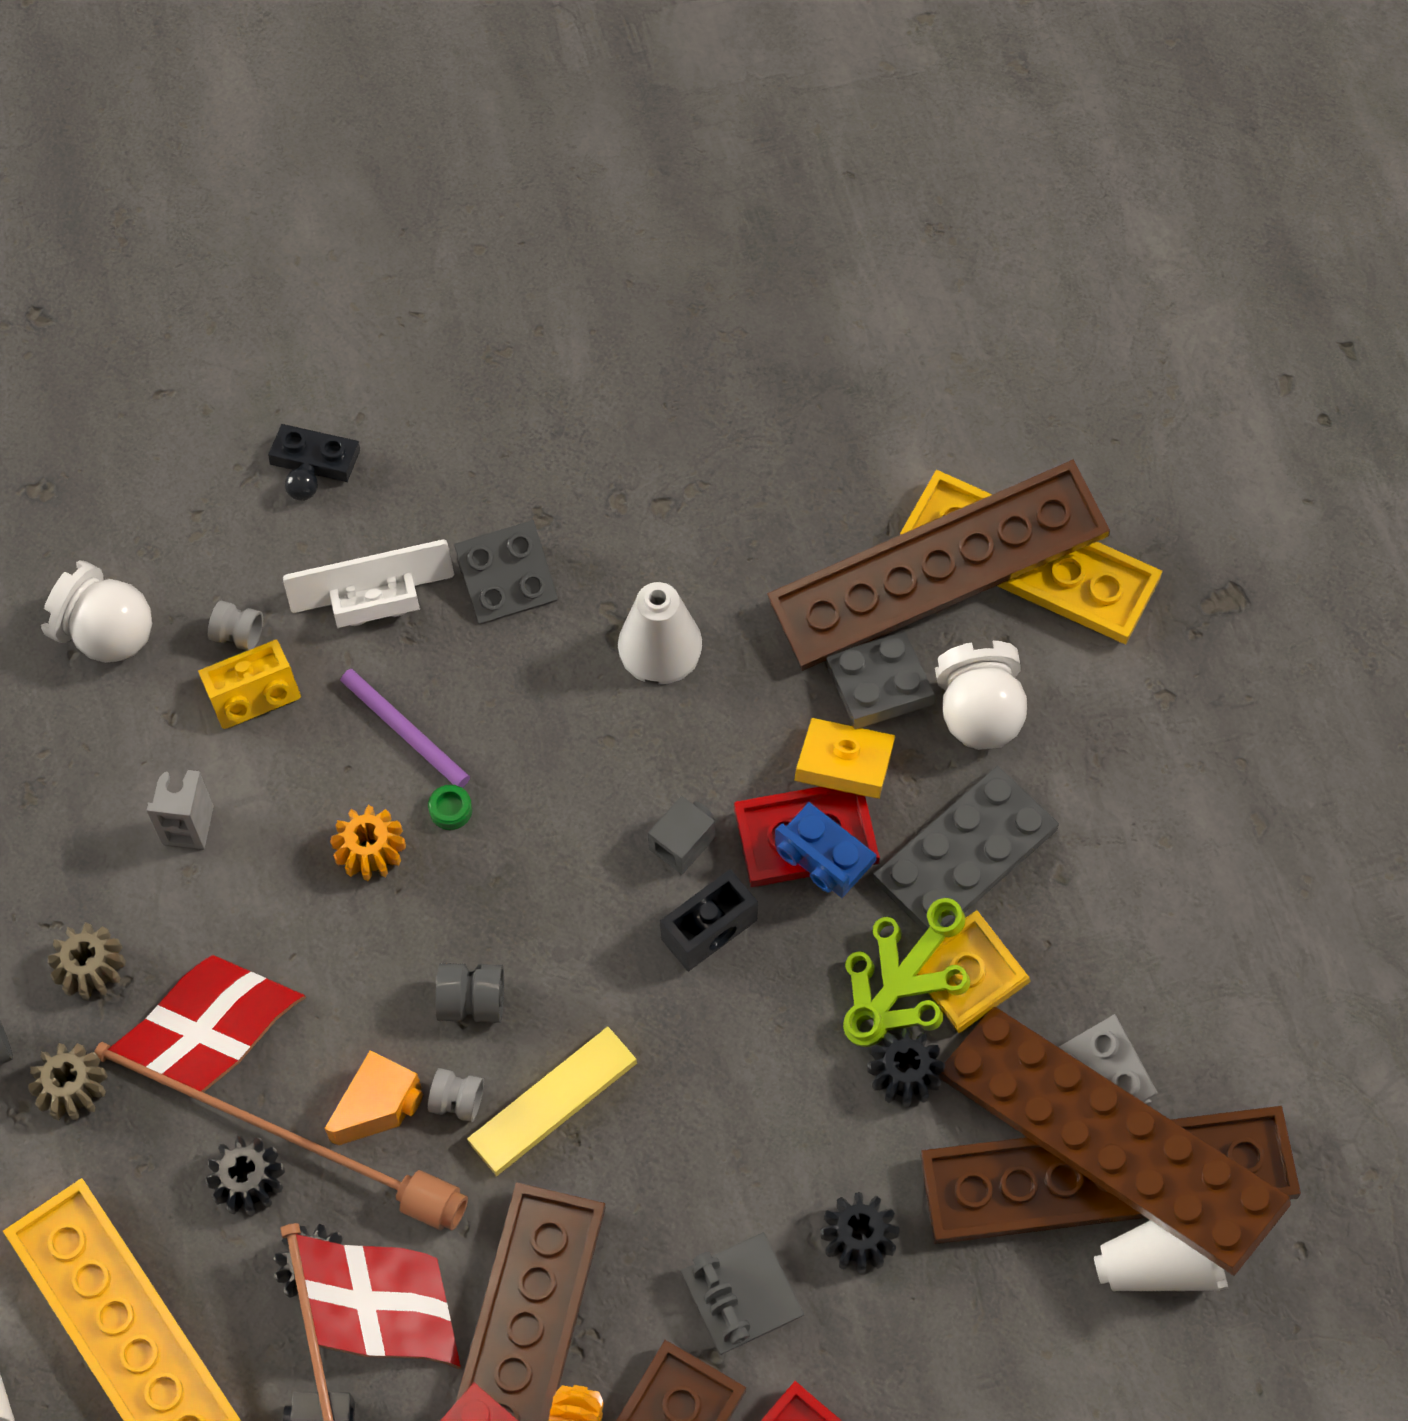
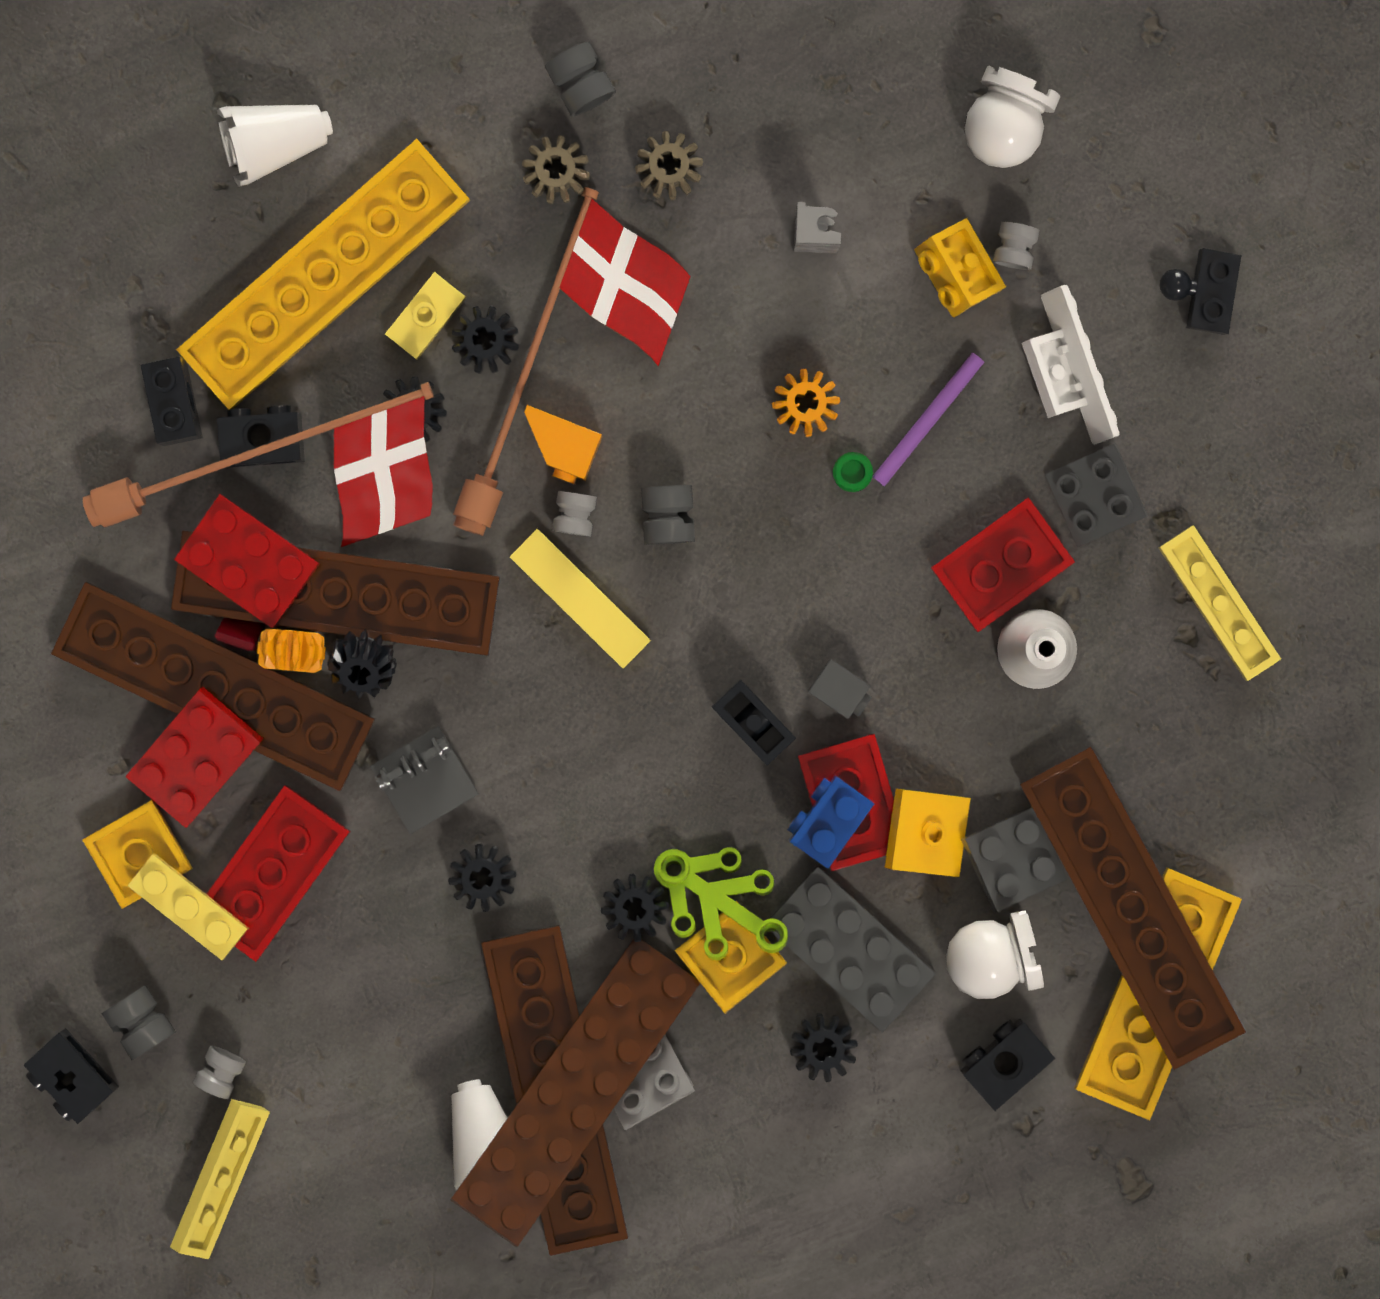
camera: 75 degrees right, 25 degrees up
(207, 1244) = (425, 315): none -> light yellow plate
(567, 666) = (1002, 565): none -> red plate
(595, 1329) = (362, 664): none -> black gear
(631, 469) = (1219, 603): none -> light yellow plate
(1089, 885) = (818, 1035): none -> black gear
(1095, 680) = (1000, 1086): none -> black brick

